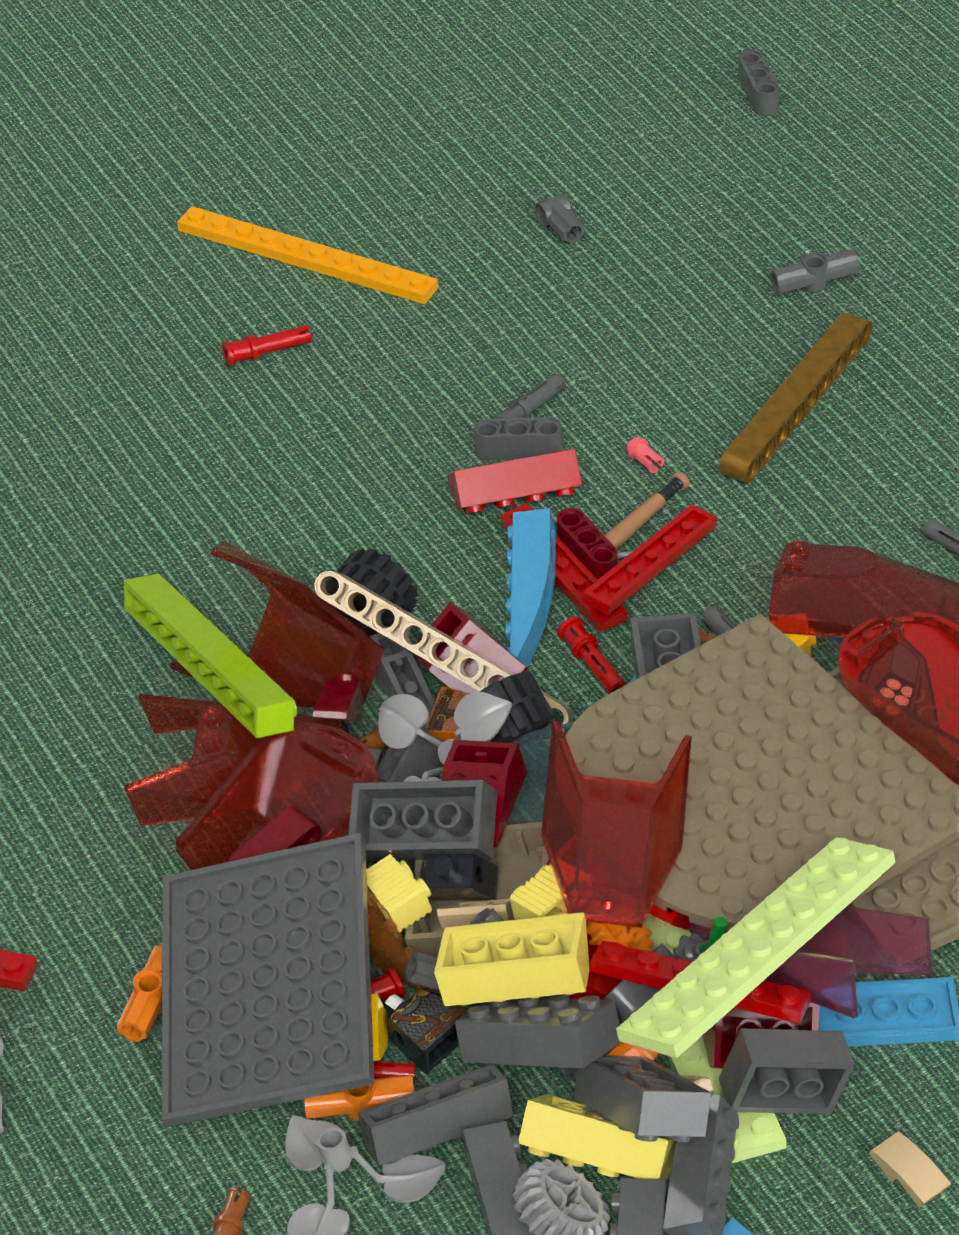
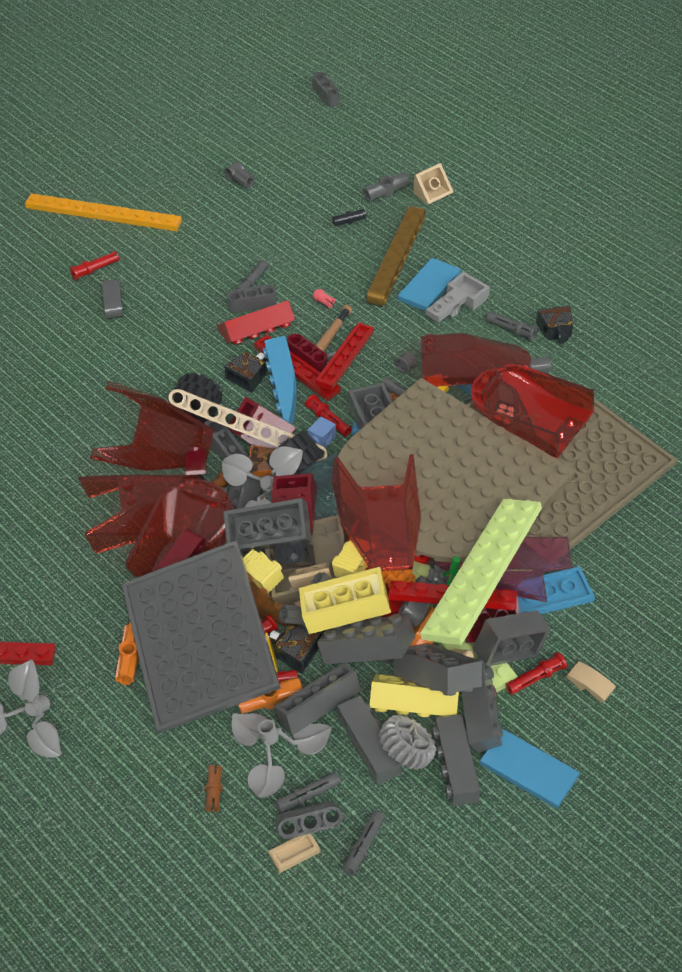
camera: 15 degrees left, 5 degrees up
(209, 656) = (115, 448): lime brick -> none
(280, 406) = (112, 298): none -> dark grey beam
(474, 560) = (246, 370): none -> torso
(573, 683) = (322, 432): none -> medium blue brick
(732, 319) = (349, 217): none -> black pin
(754, 585) = (406, 362): none -> dark grey wheel
(835, 1135) = (542, 670): none -> red pin
(840, 456) = (428, 284): none -> dark azure tile
(893, 474) = (460, 291): none -> light grey plate
(898, 278) = (432, 184): none -> tan slope

